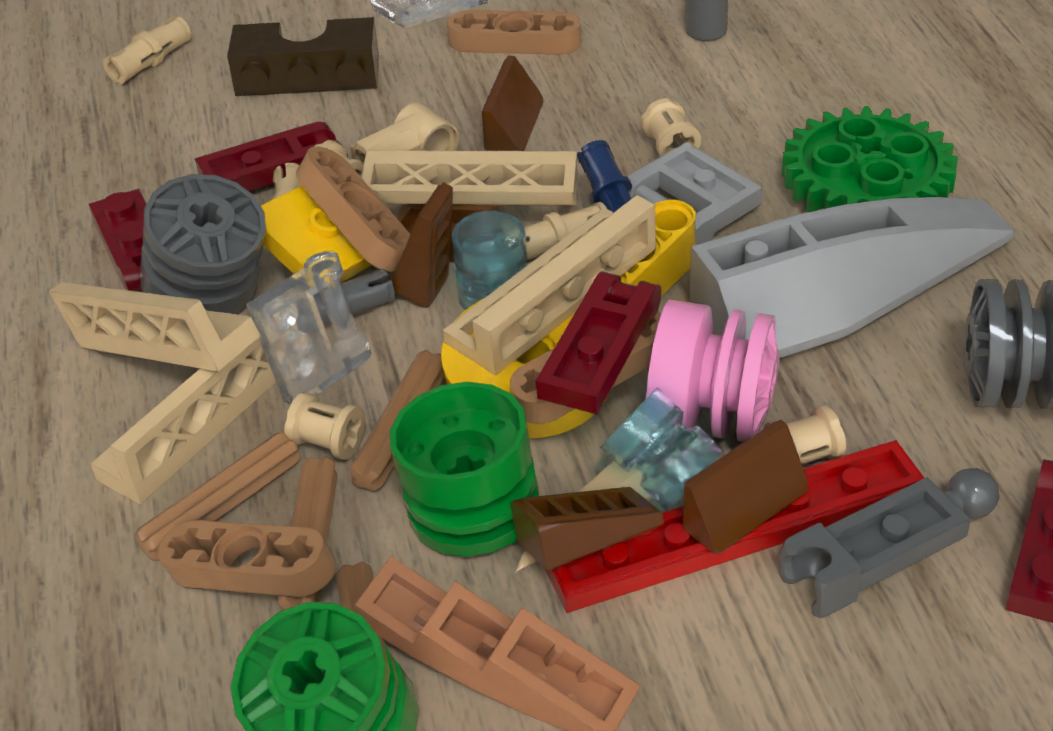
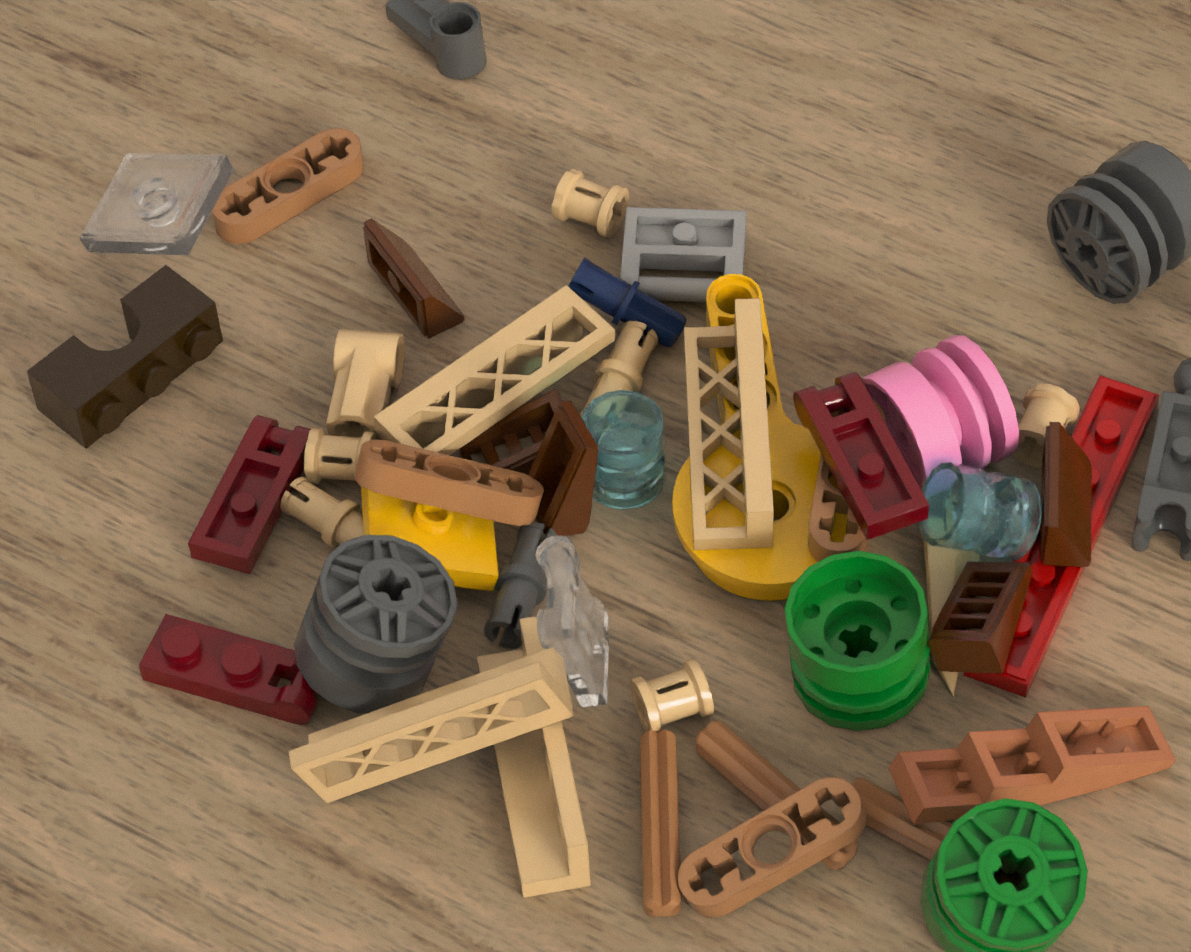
camera: 45 degrees left, 10 degrees up
(375, 457) = (714, 646): medium nougat axle -> none
(841, 264) = (901, 252): light grey wedge -> none
(866, 160) = (801, 128): green gear -> none

